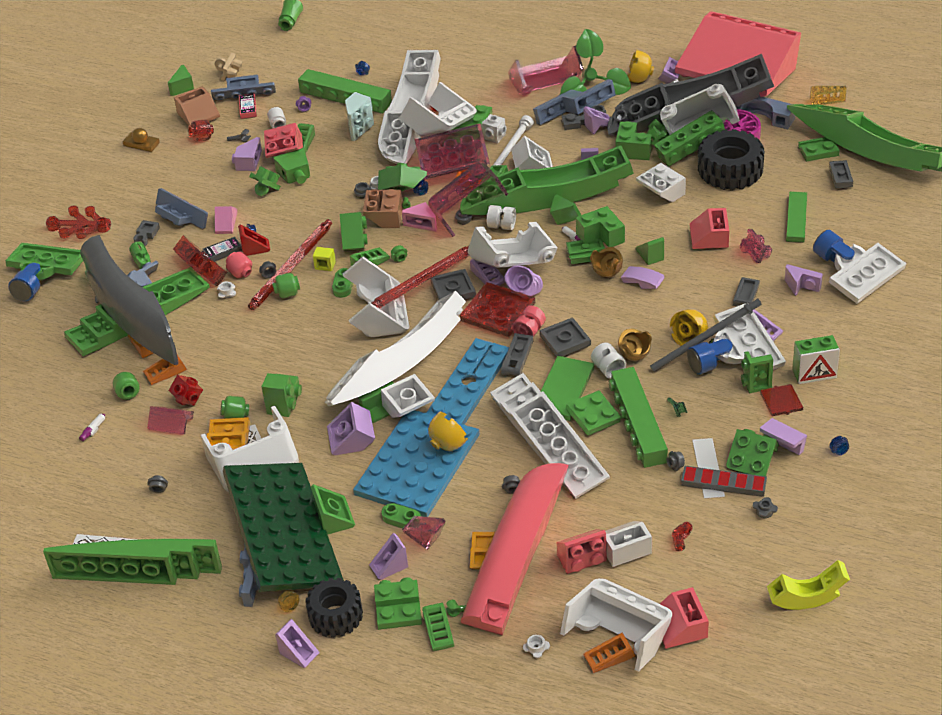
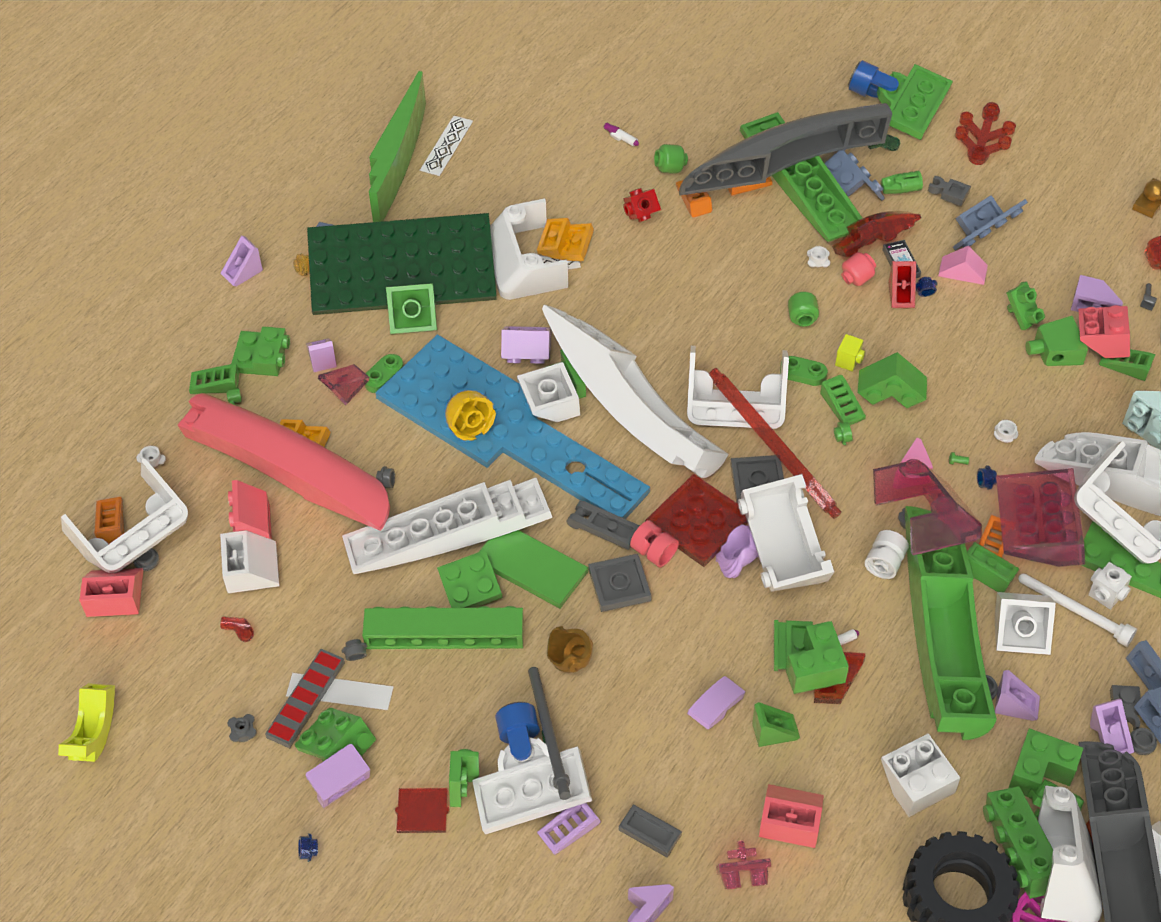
camera: 100 degrees right, 10 degrees up
(157, 484) = (509, 177): dark grey plate -> none
(168, 419) = (610, 193): clear pink panel -> none
(234, 407) = (600, 244): bright green head -> none
(269, 272) = (846, 298): dark grey plate -> none
(281, 392) = (604, 284): bright green brick -> none
(289, 265) = (858, 324): clear red piece -> none
(331, 594) = (272, 295): black tyre -> none
(360, 189) = (994, 413): dark grey plate -> none
(383, 207) = (940, 423): nougat slope -> none
(400, 177) = (992, 447): bright green slope -> none
(563, 210) = (889, 633): bright green slope -> none
(607, 262) = (750, 658): pearl gold cap -> none
(607, 359) = (552, 615): white wheel -> none
(678, 407) = (445, 678): clear green hand -> none
(687, 325) = (583, 727): yellow cylinder -> none
(815, 359) = (458, 858): piece -> none

